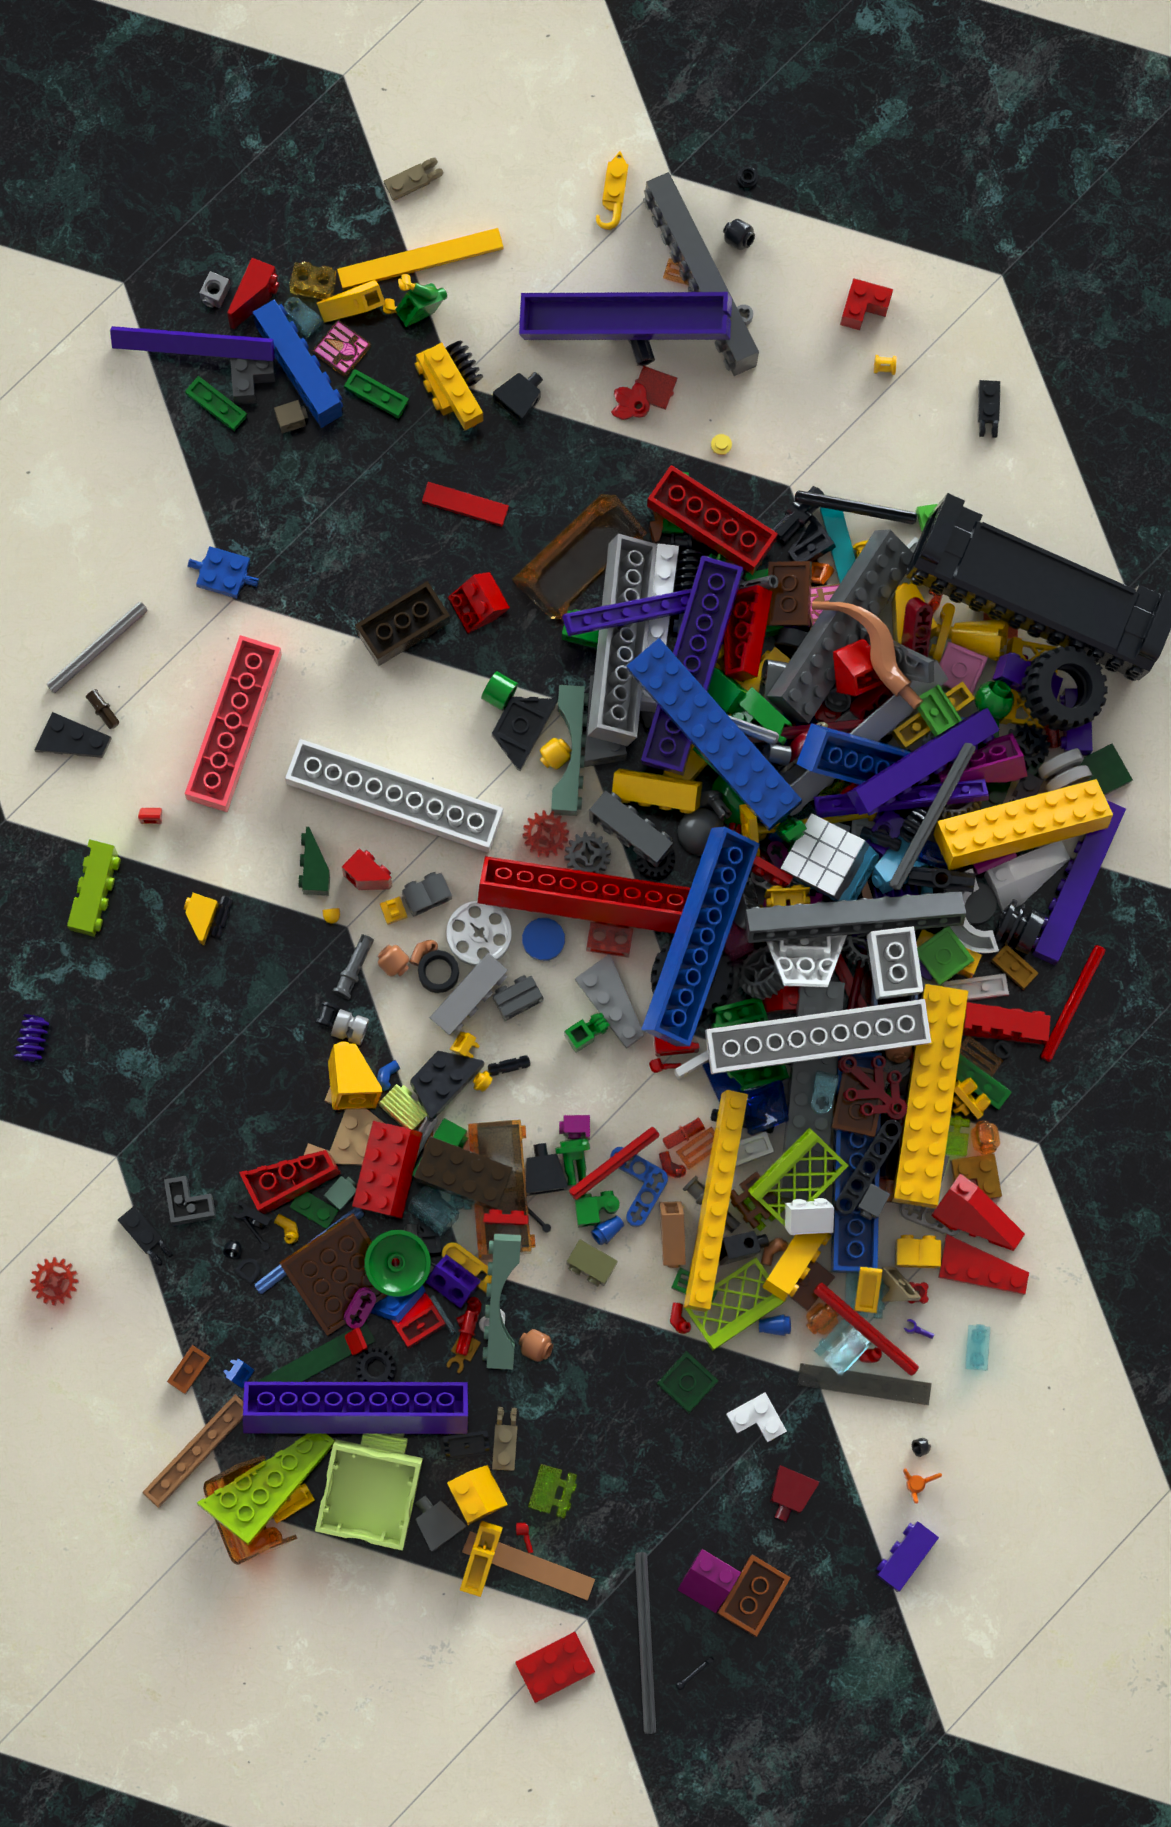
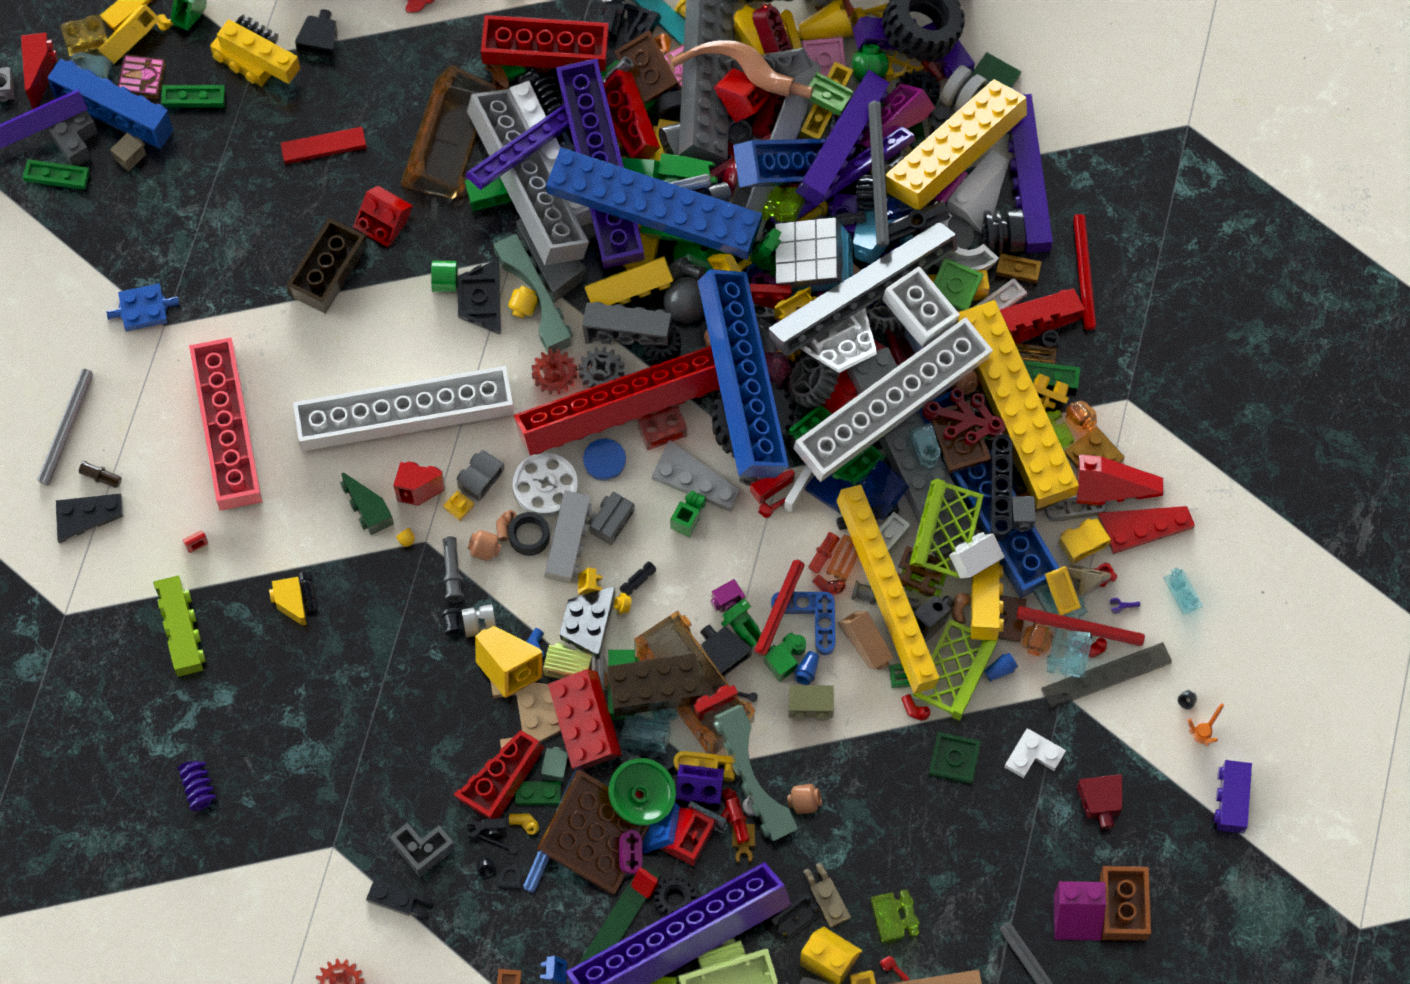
camera: 25 degrees left, 10 degrees down
(832, 803) = (789, 204): none -> clear neon green plate

